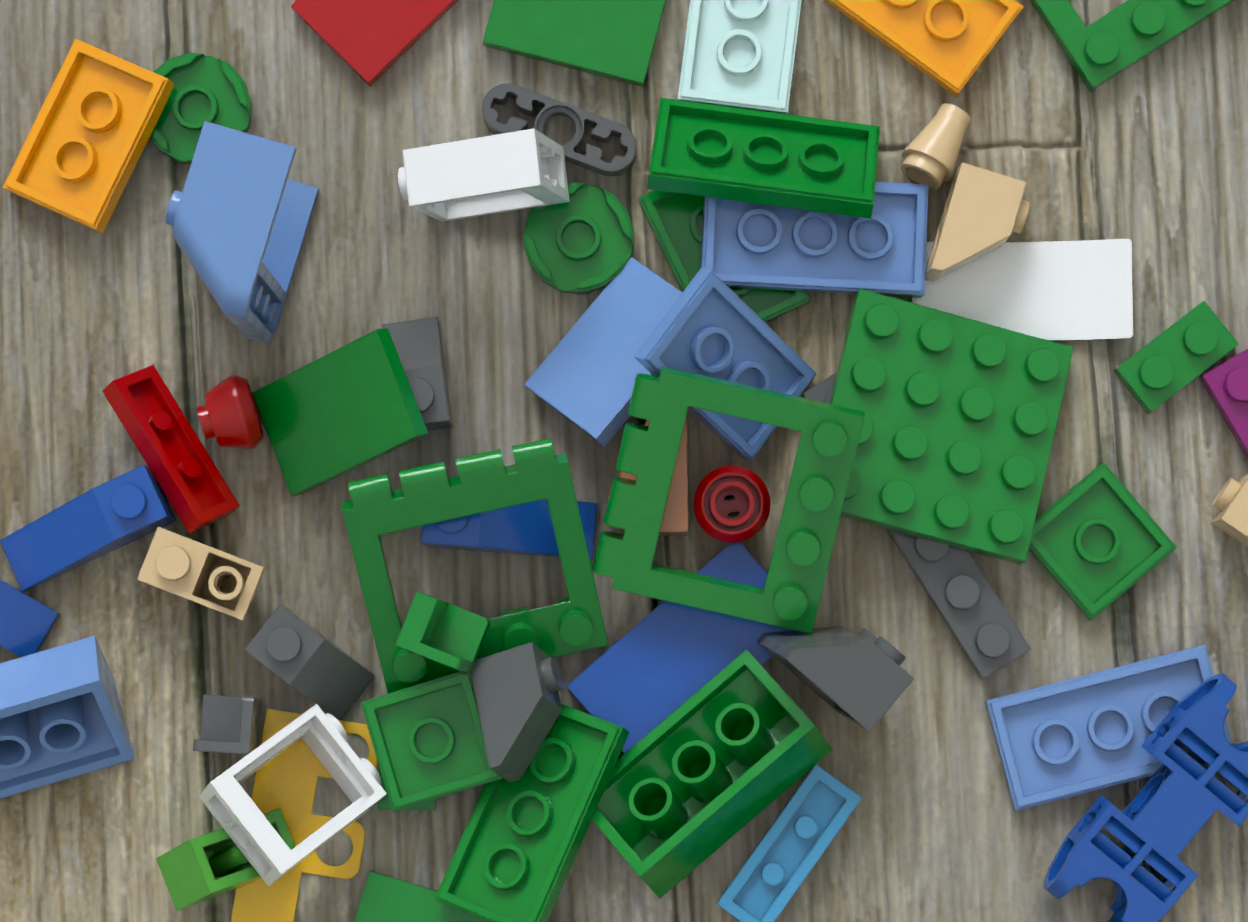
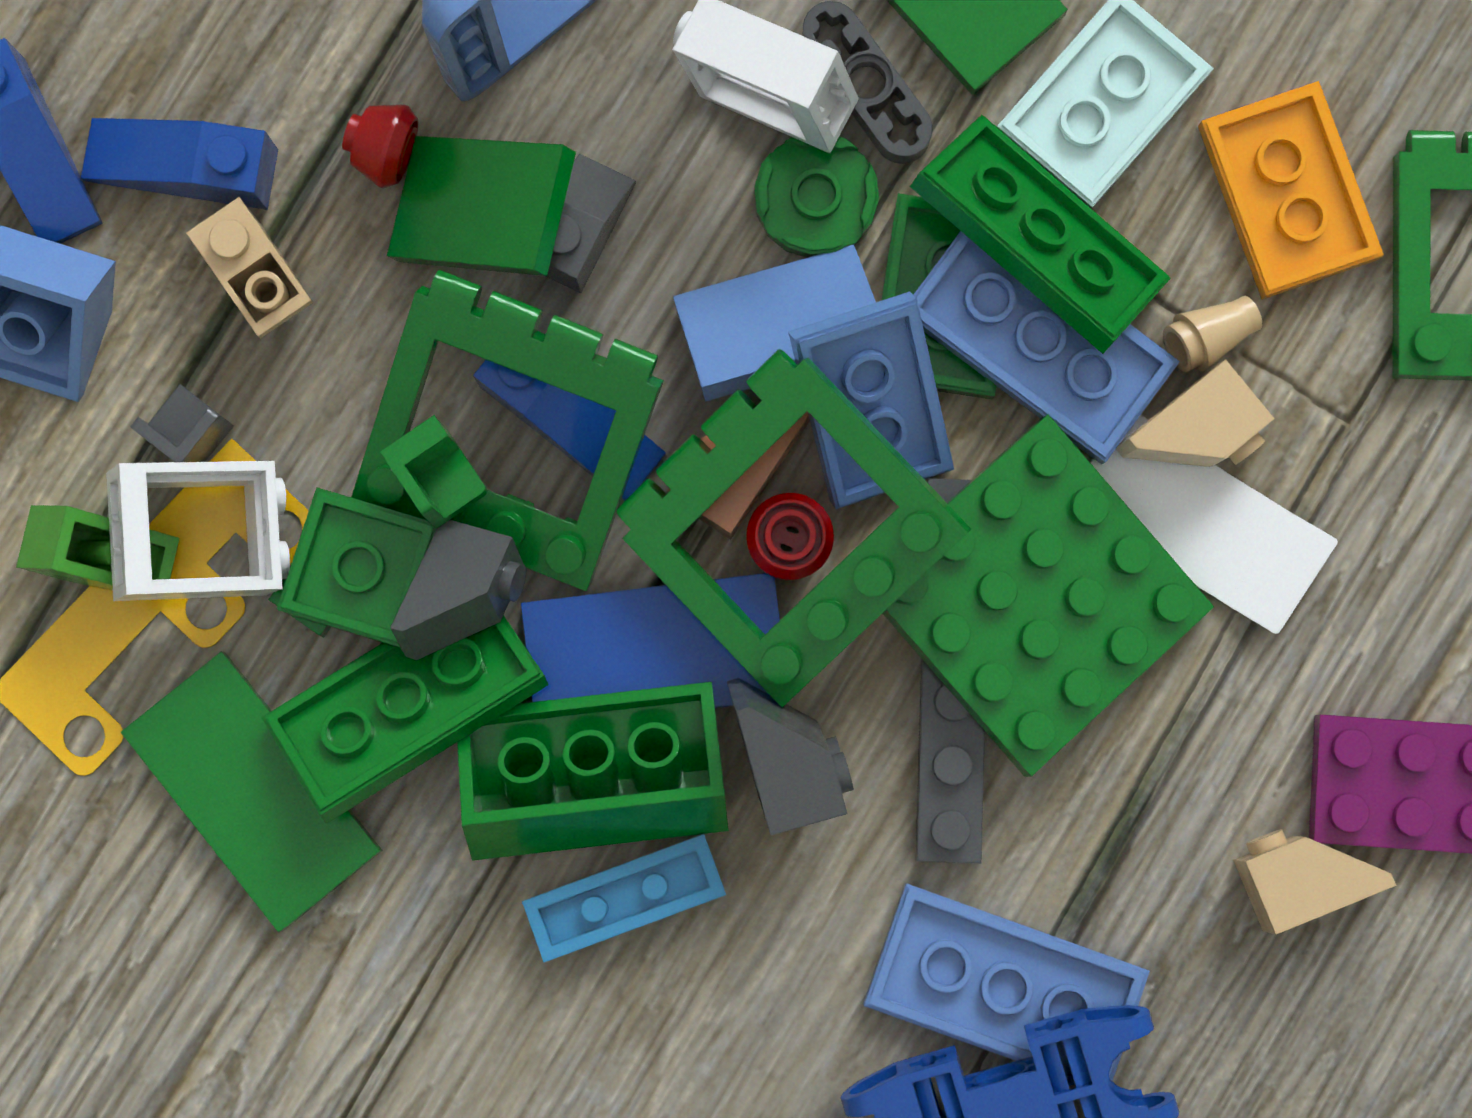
camera: 30 degrees right, 0 degrees up
(171, 448) = (304, 136): red plate -> none
(309, 662) = (296, 419): dark grey slope -> none
(1097, 541) = (1113, 805): green tile -> none
(1175, 357) = (1305, 681): green plate -> none

